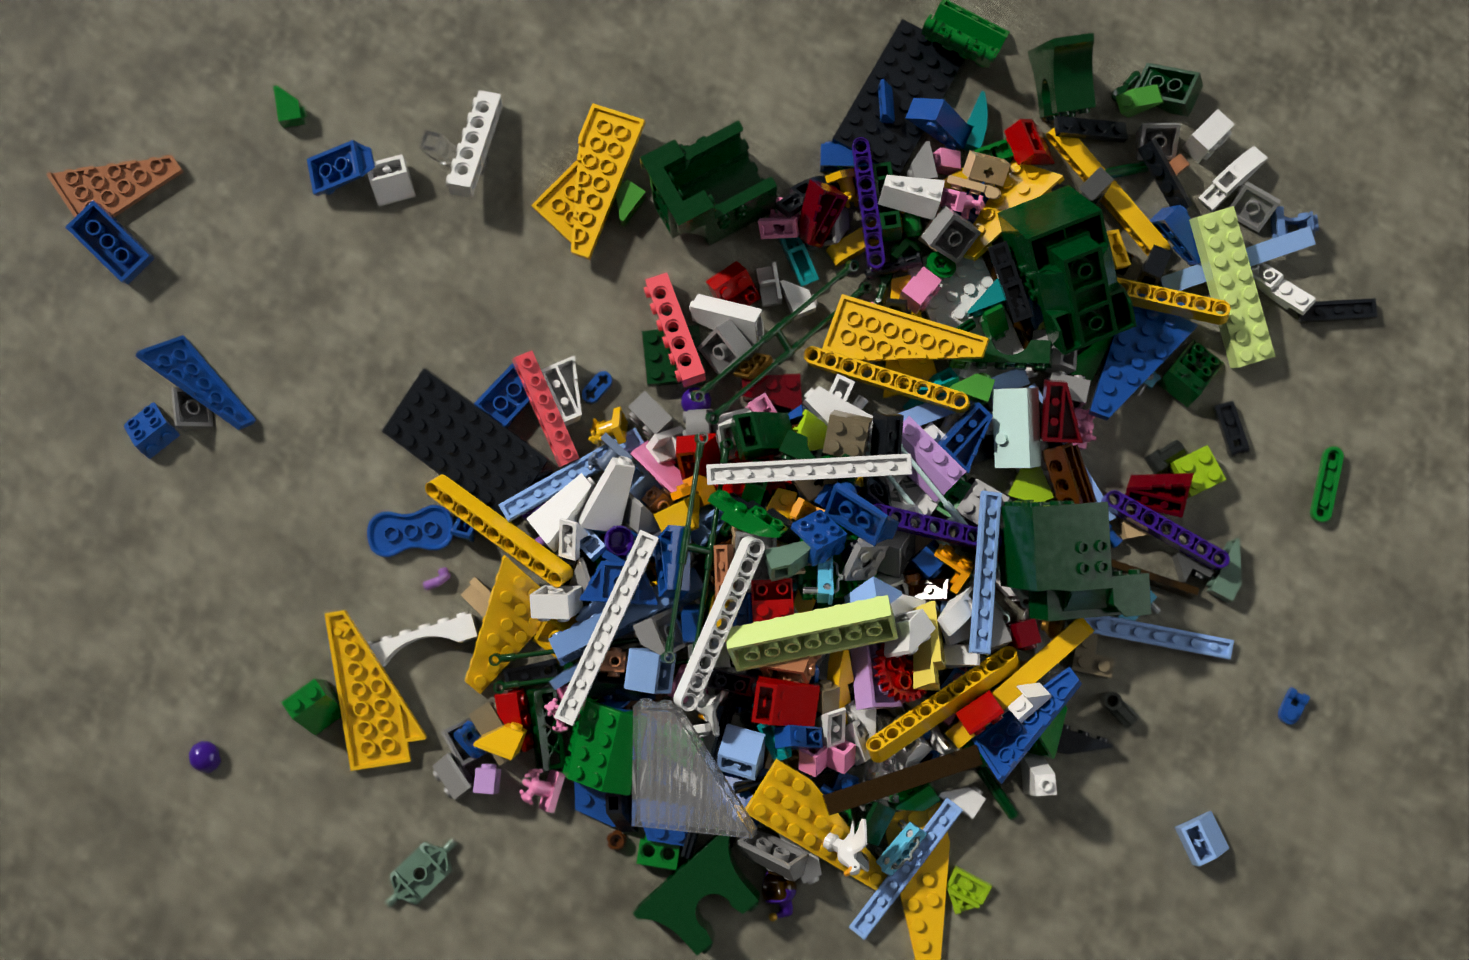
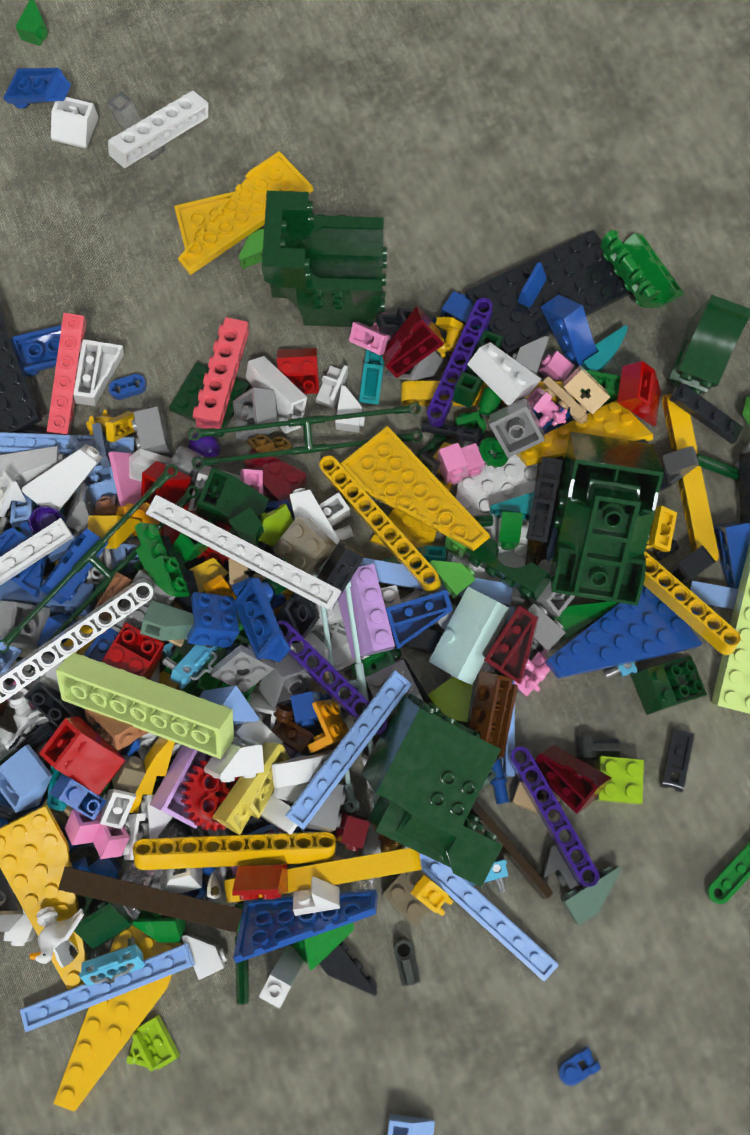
camera: 30 degrees right, 5 degrees down
(1109, 646) = (431, 895): none -> yellow hinge

